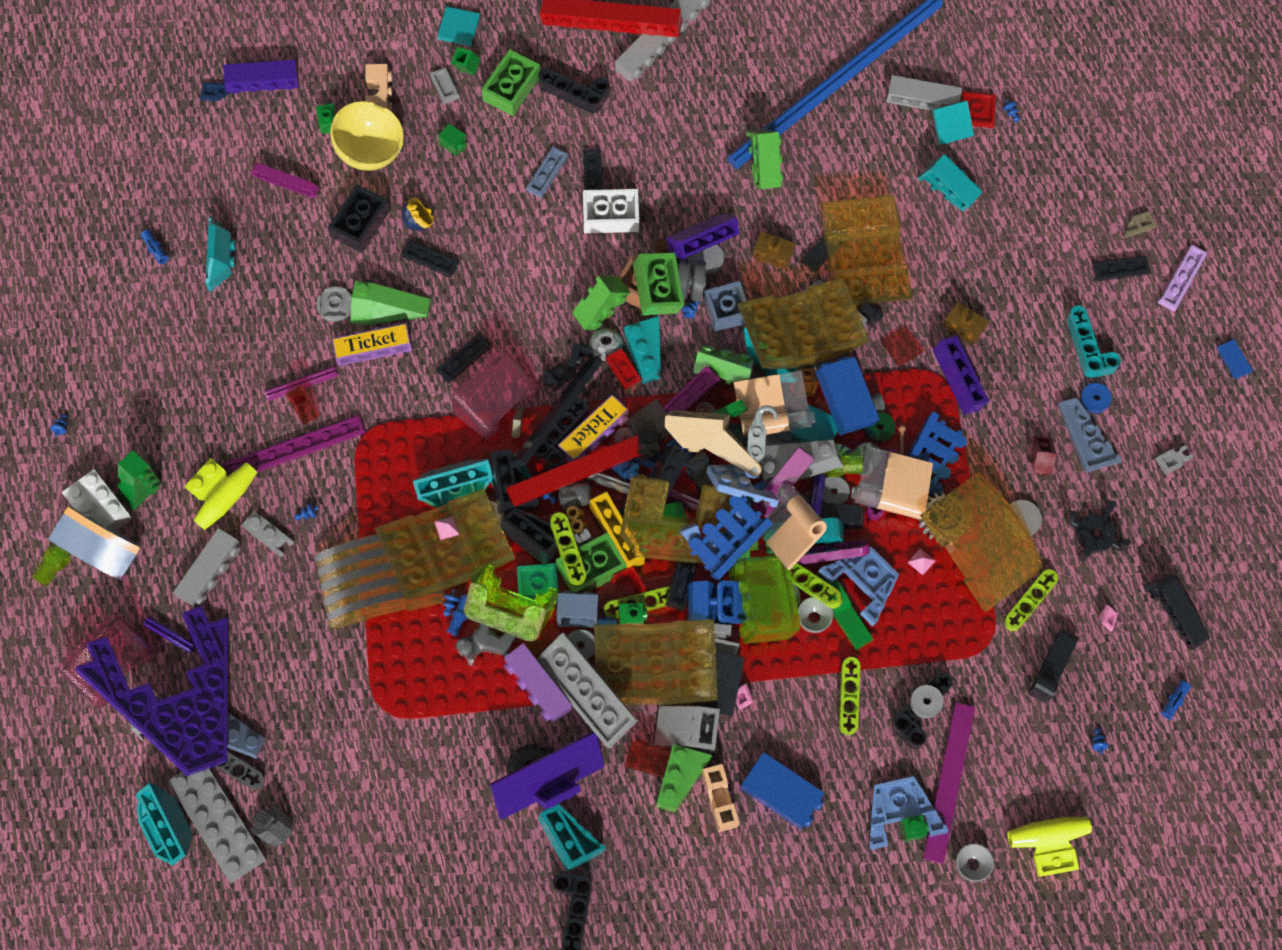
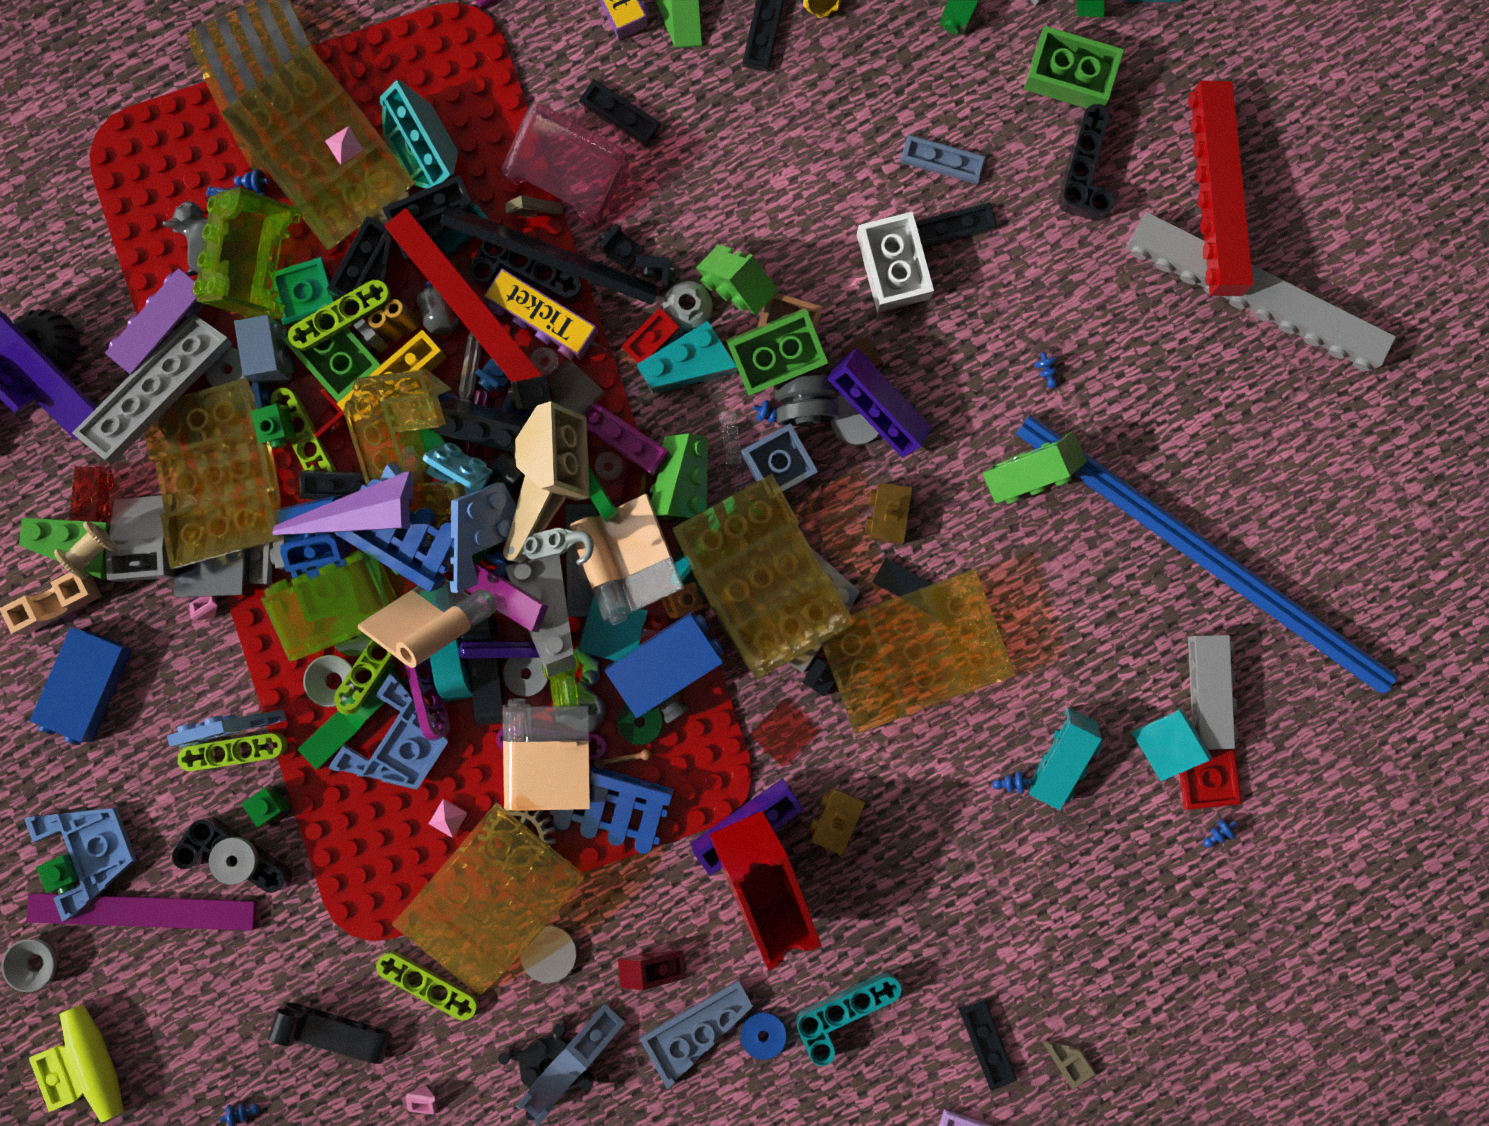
camera: 80 degrees right, 15 degrees up
(688, 498) = (450, 463): none -> medium azure bracket
(693, 753) = (85, 550): none -> tan hose
(699, 141) = (1048, 371): none -> blue hair
(700, 335) = (730, 437): none -> clear axle
(710, 542) = (371, 508): none -> medium lavender wedge
(837, 697) = (219, 726): none -> medium blue wing
(891, 678) = (265, 806): none -> green brick
(959, 217) = (1010, 783): none -> blue hair
(1005, 367) = (765, 888): none -> red gear
(1095, 512) = (570, 1063): none -> sand blue piece

